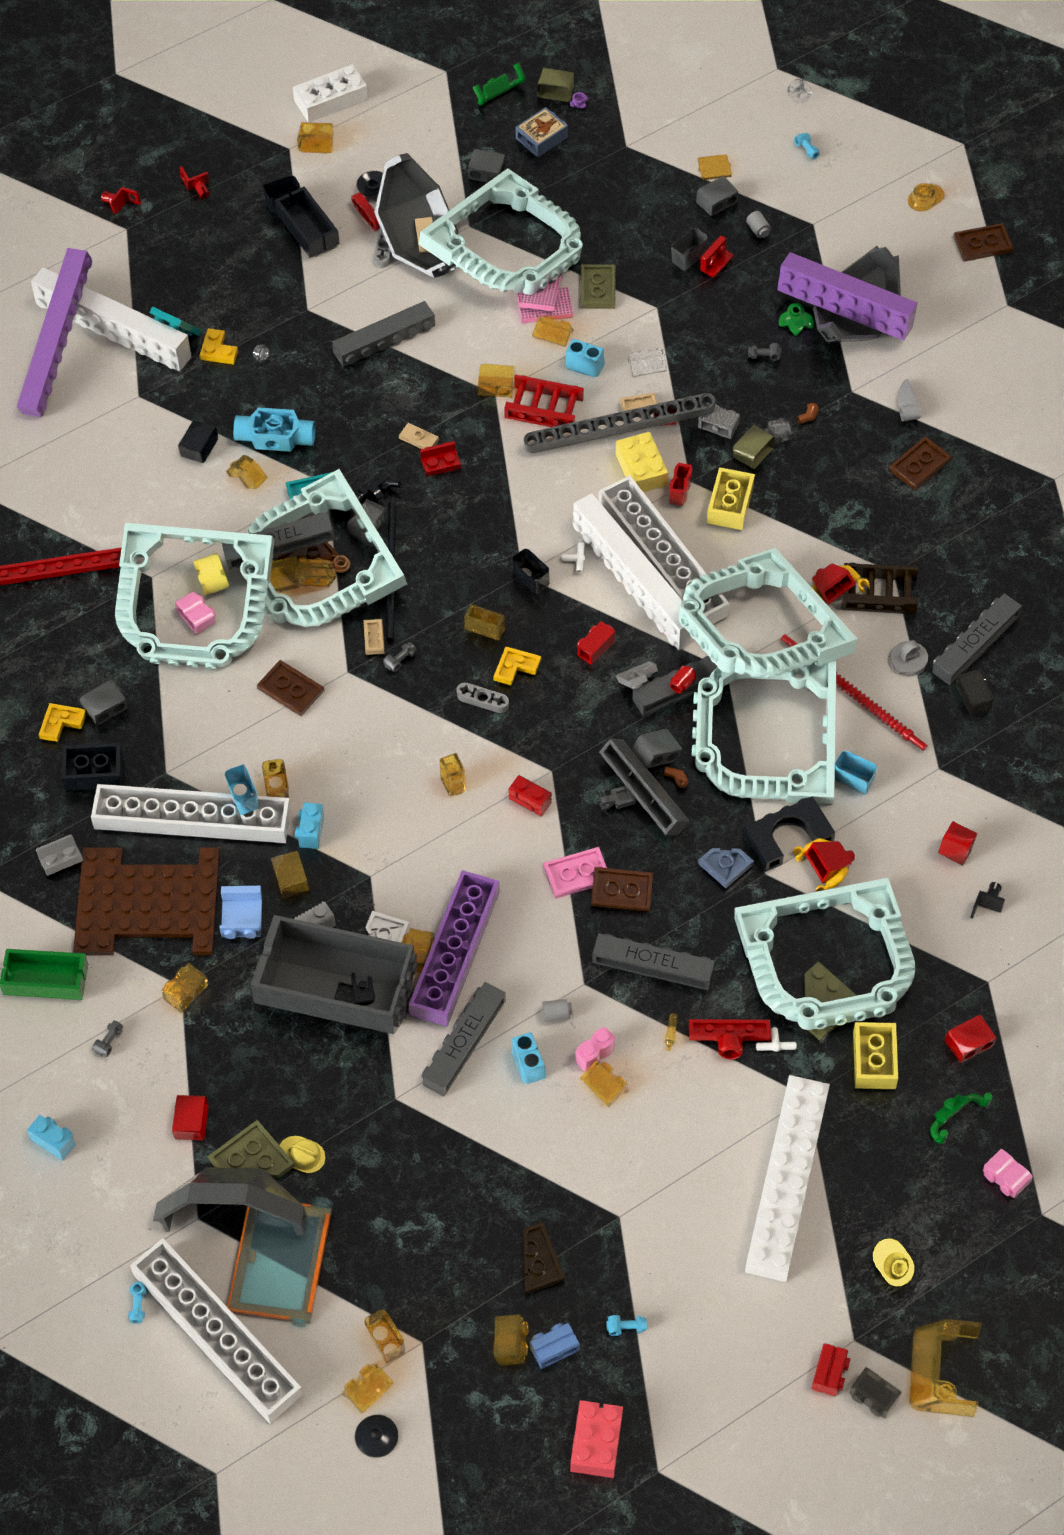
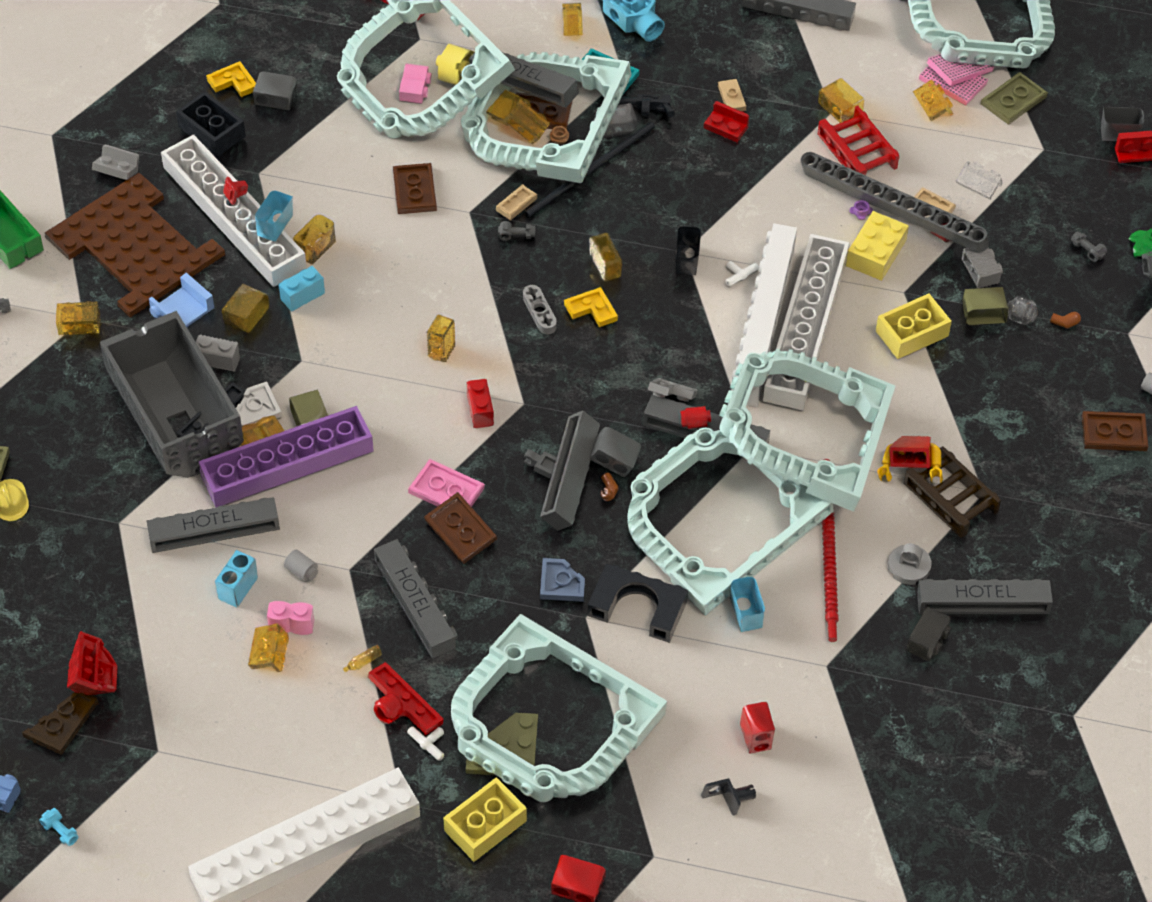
camera: 45 degrees right, 5 degrees down
(185, 798) = (234, 189): none -> red brick
(428, 905) = (307, 407): none -> olive piece
(515, 1206) = (91, 667): none -> red wedge
(592, 359) = (931, 148): medium azure piece -> none
(596, 642) = (673, 342): red brick -> none
(599, 447) = (861, 209): none -> medium lavender plate
(680, 484) = (886, 283): red brick -> none
(828, 861) = (639, 648): red torso -> none

